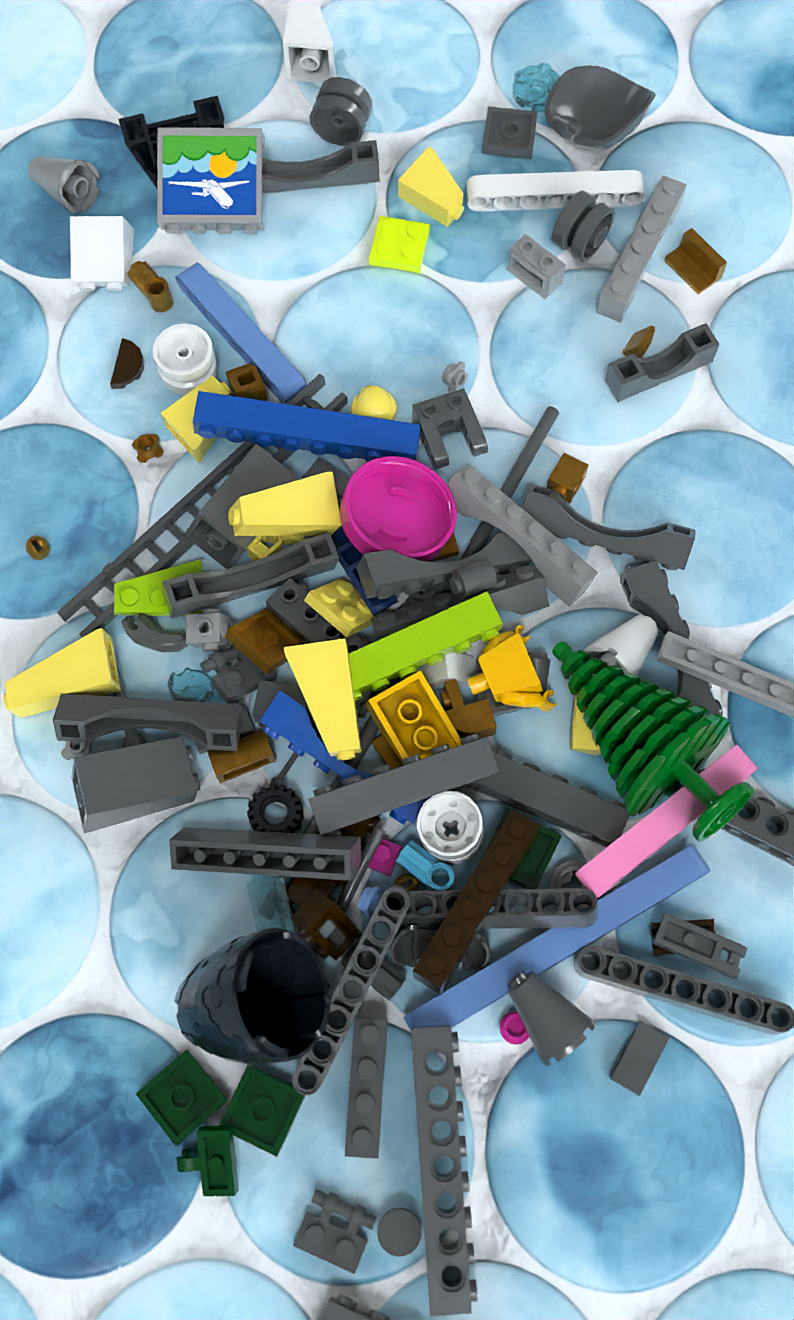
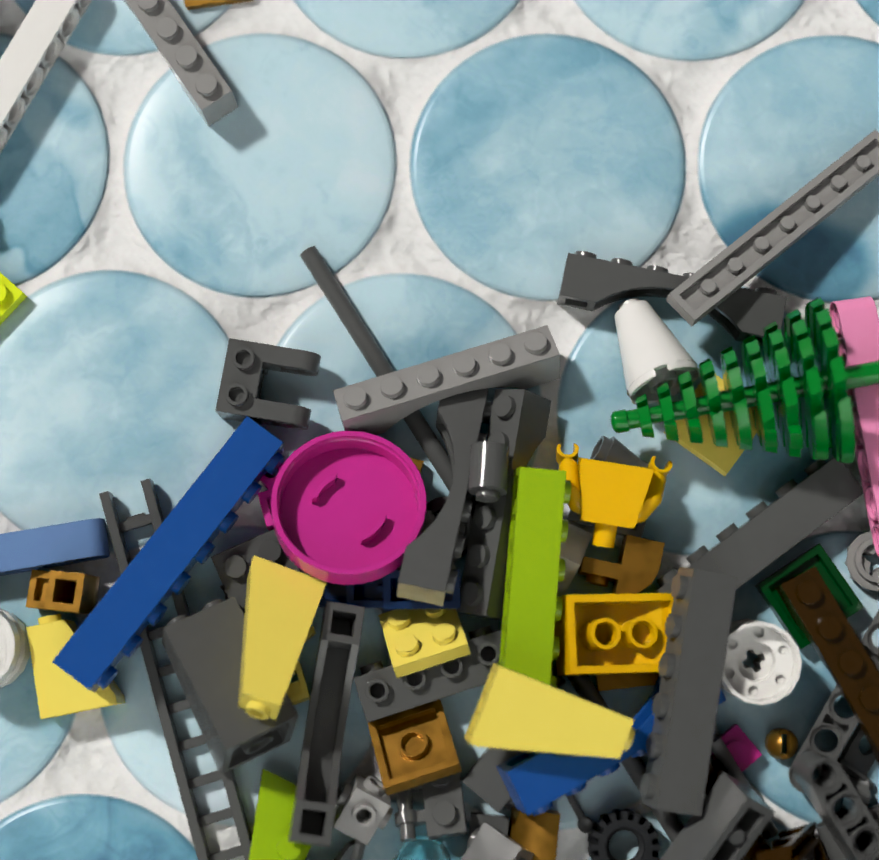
camera: 60 degrees left, 10 degrees up
(145, 441) = (60, 761): pearl gold plate -> none
(369, 900) = (782, 792): light blue plate -> none
(374, 402) = (181, 454): light yellow hat -> none
(424, 866) = (769, 718): medium azure piece -> none
(454, 376) = (198, 336): light grey plate -> none
(540, 264) = (110, 159): light grey window -> none
(567, 476) = (405, 288): pearl gold brick -> none
(583, 226) = (95, 74): dark grey wheel -> none
(639, 342) = (280, 104): pearl gold slope -> none
(665, 543) = (547, 235): dark grey arch -> none
(689, 352) = (328, 96): dark grey arch -> none

